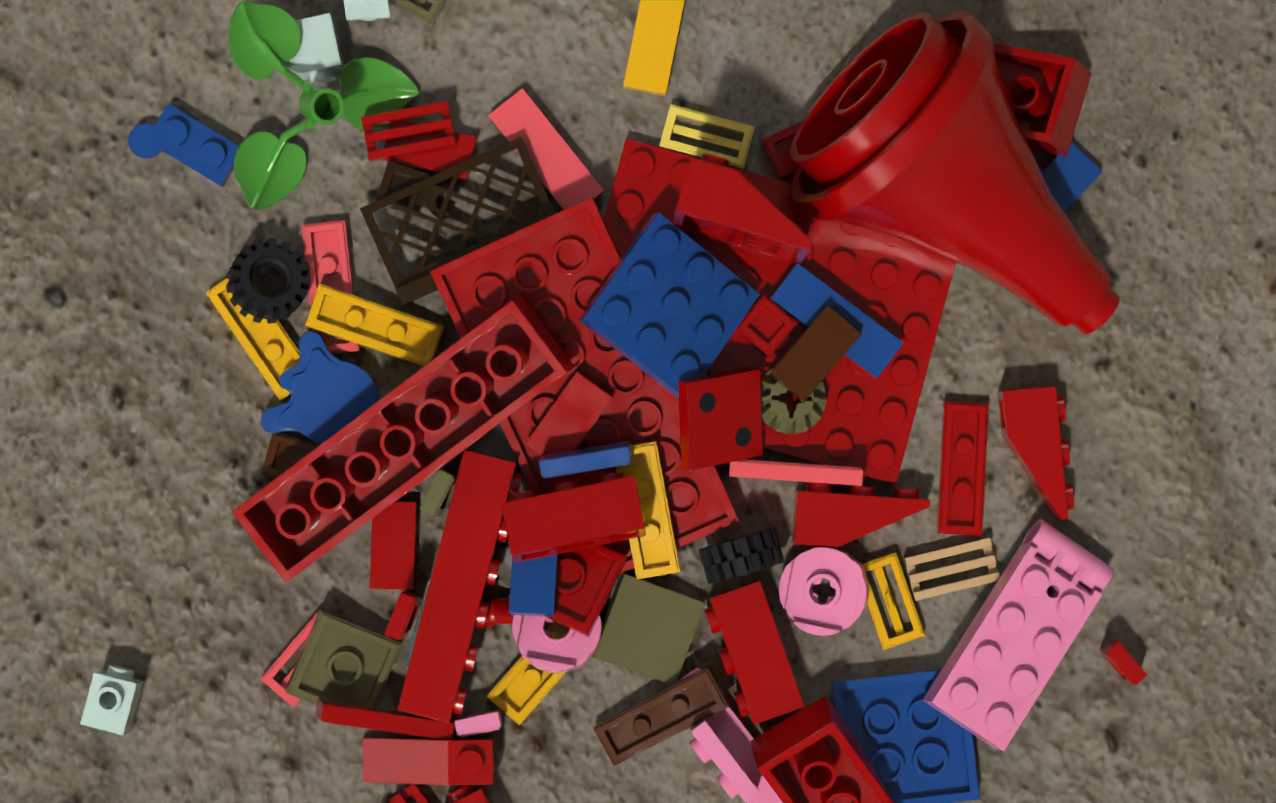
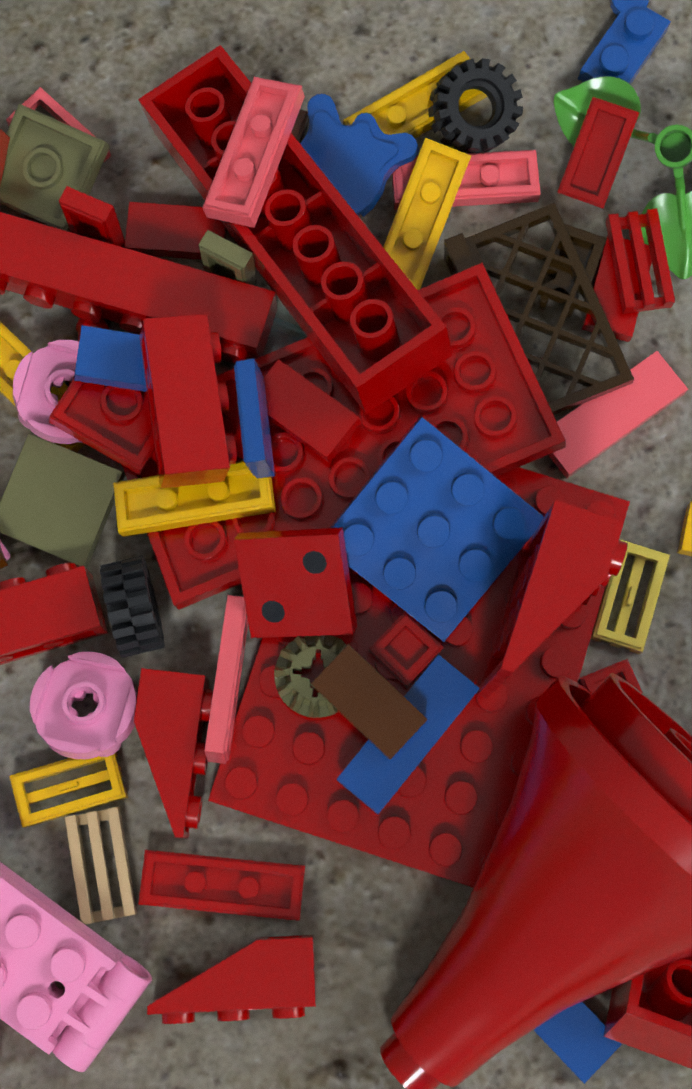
camera: 90 degrees right, 10 degrees down
(306, 169) = (598, 152): none -> red tile
(345, 472) = (254, 152): none -> coral tile

